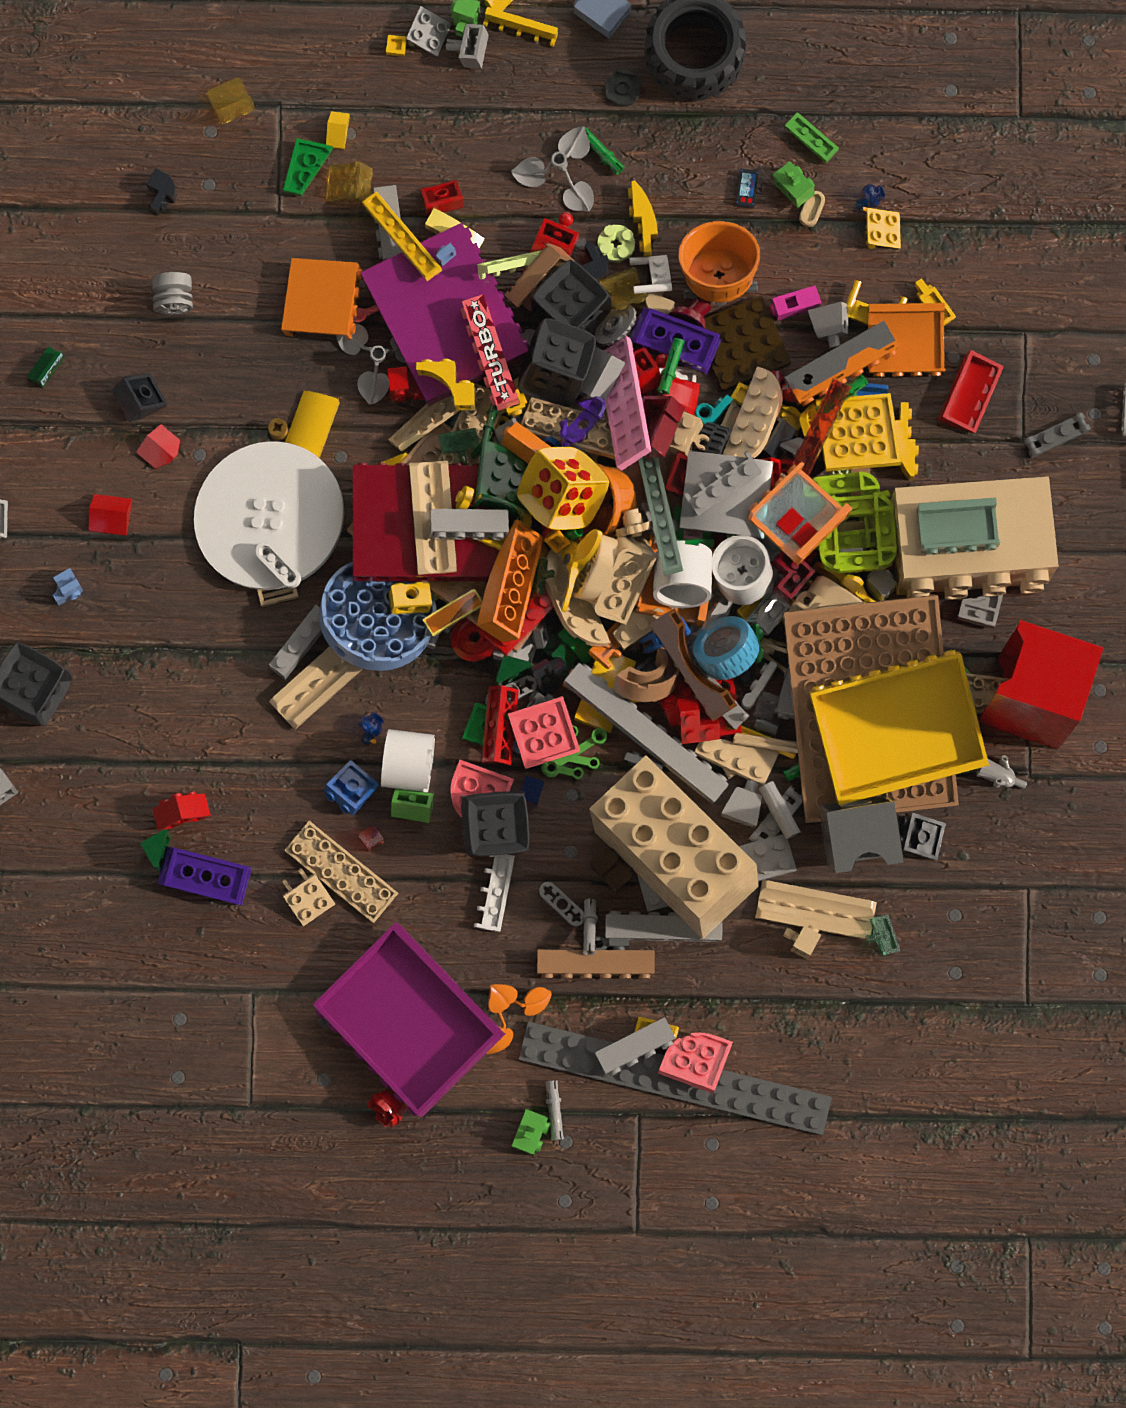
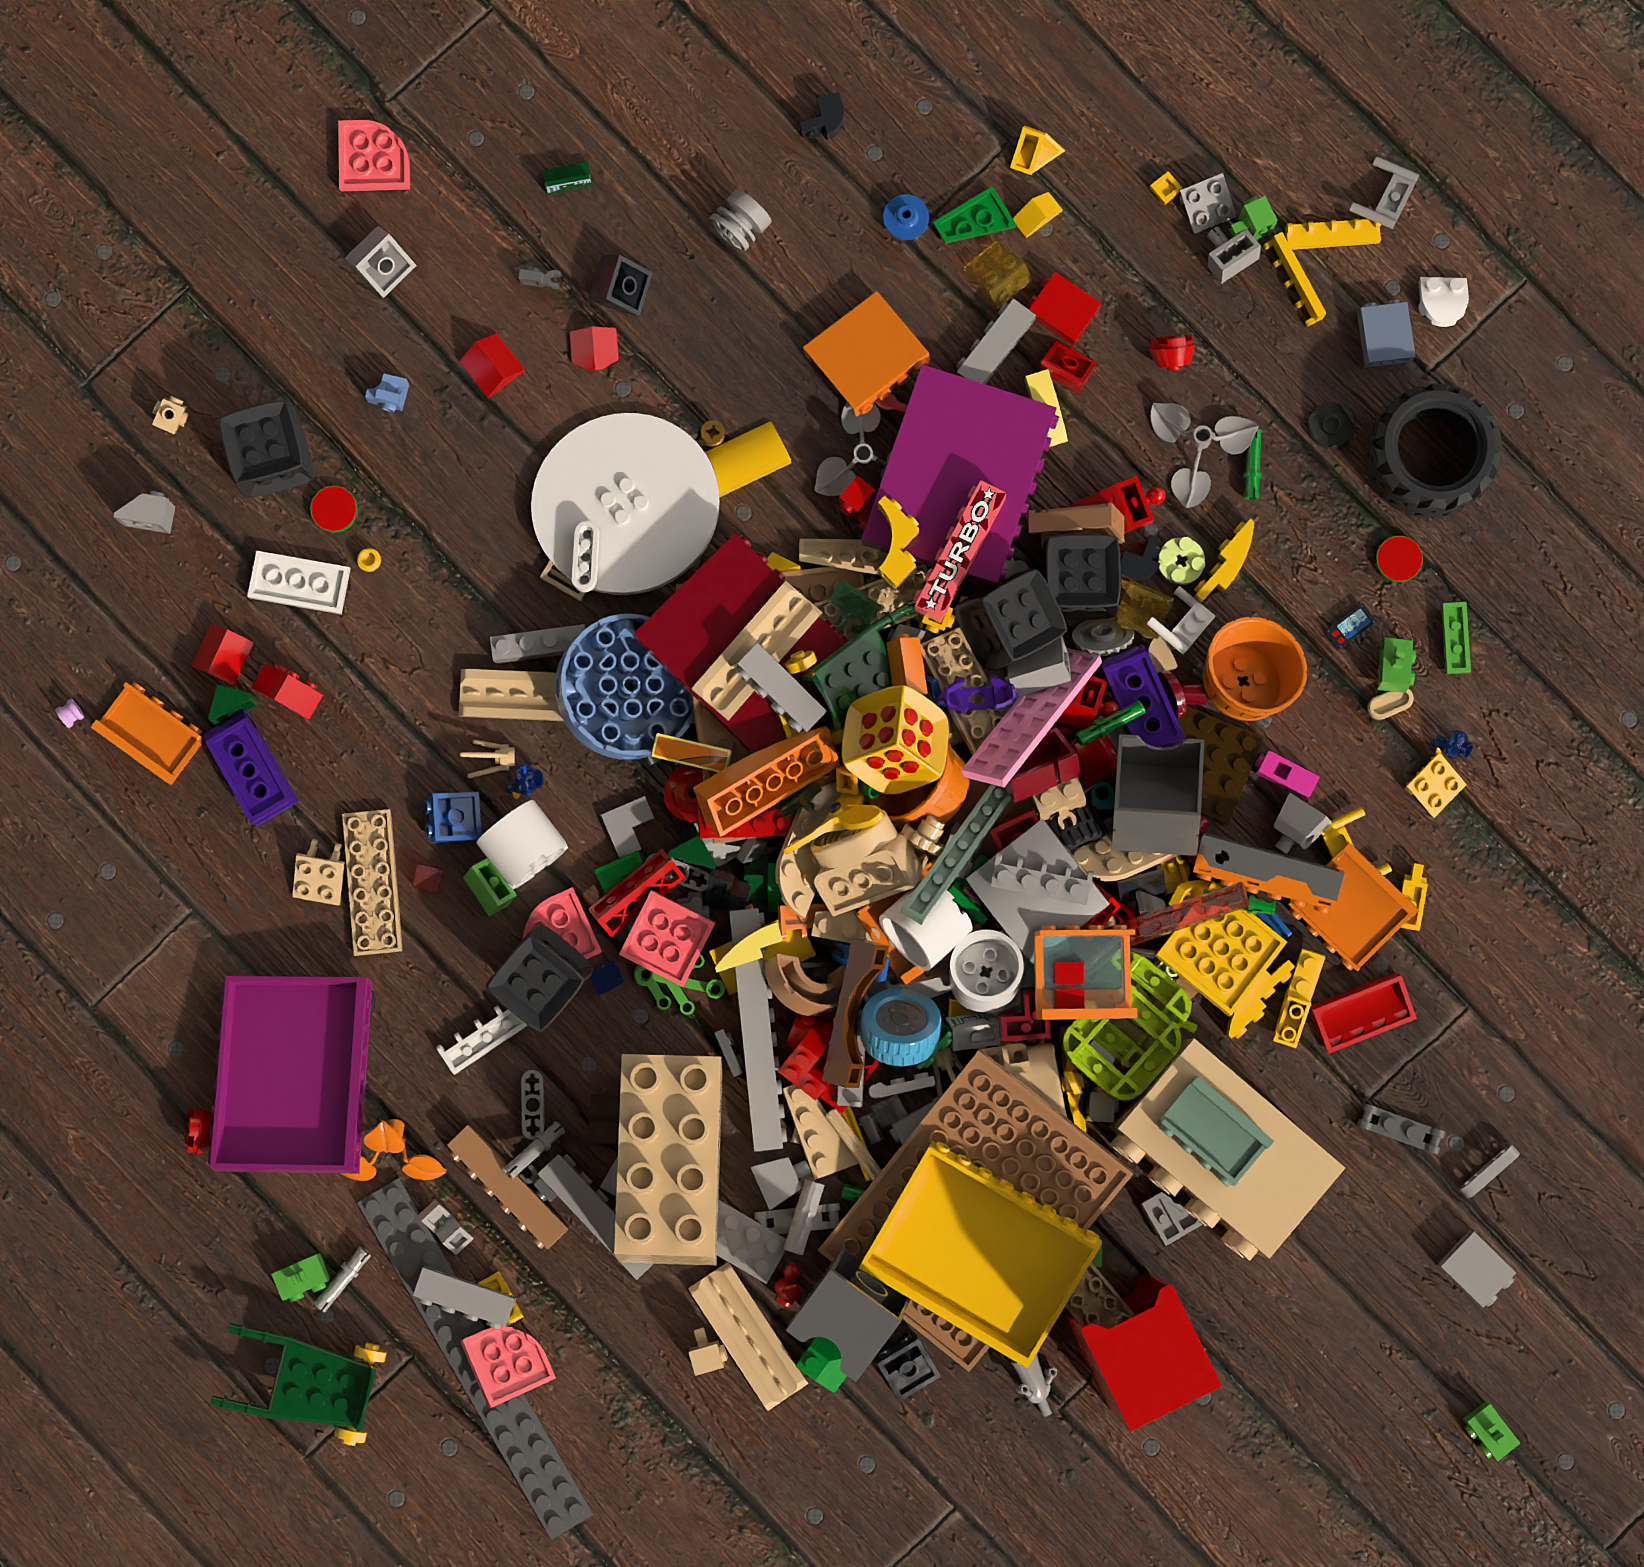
camera: 45 degrees right, 5 degrees up
(65, 949) = (69, 713): none -> lavender wheel
(85, 440) = (534, 277): none -> dark grey plate
(101, 684) = (334, 509): none -> red tile
(120, 829) = (222, 654): none -> red slope
(124, 745) = (299, 582): none -> white plate
(124, 914) = (150, 732): none -> orange panel
(151, 692) = (368, 560): none -> yellow plate
(230, 100) = (968, 95): clear yellow bracket -> none
(265, 210) = (902, 227): none -> blue piece
(299, 95) = (1034, 150): none -> yellow slope
(343, 726) = (504, 756): none -> tan plant
(401, 236) = (991, 367): yellow tile -> none
(402, 605) = (654, 701): yellow brick -> none
(406, 167) = (1063, 308): none -> red brick
(445, 254) = (1011, 422): medium blue plate -> none
(449, 696) = (621, 824): none -> light grey tile
(493, 131) = (1172, 351): none -> red cone
(506, 263) = (1058, 485): yellowish green hinge -> none
(583, 1021) = (445, 1226): none -> light grey slope
(597, 686) = (749, 947): none -> light yellow slope
(602, 1180) = (314, 1385): none -> dark green piece
(736, 125) = (1399, 559): none -> red tile
(739, 379) = (1158, 796): none -> dark grey piece
(811, 862) = (787, 1288): none -> red animal
(873, 878) = (822, 1363): none -> green slope
(883, 935) = (783, 1419): clear green plate -> none
(927, 419) = (1298, 997): none -> yellow slope

